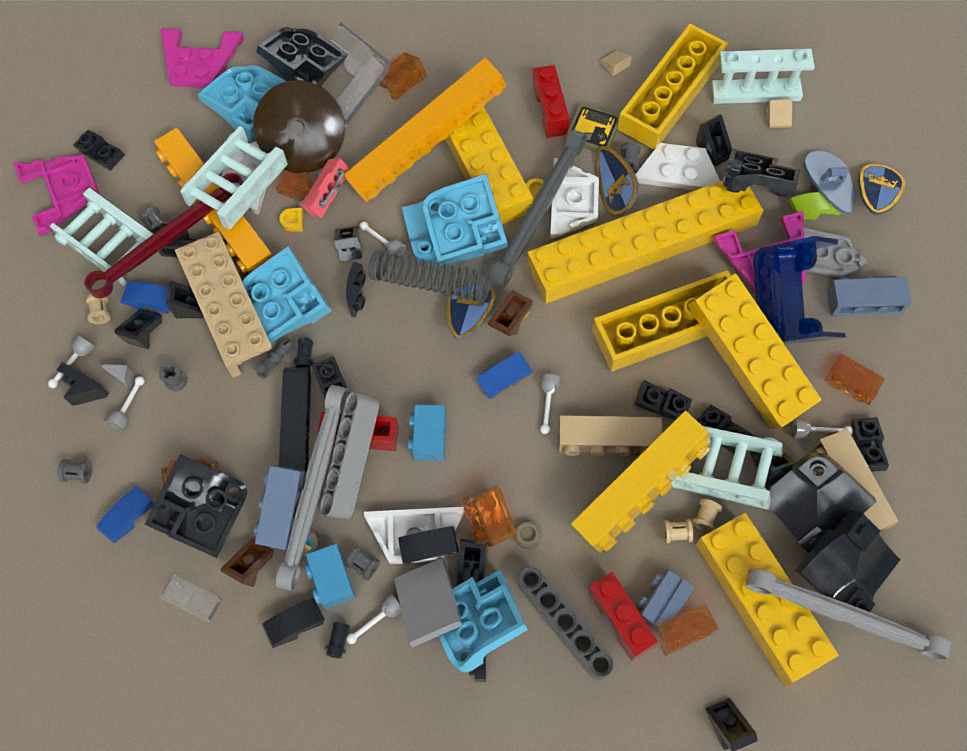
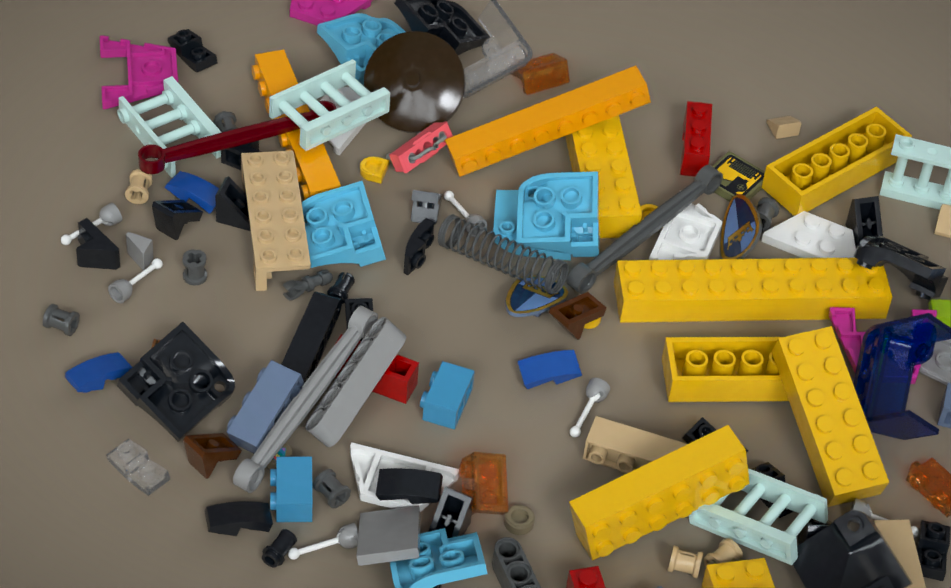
camera: 10 degrees right, 20 degrees down
(294, 185) = (387, 138): clear orange bracket -> none

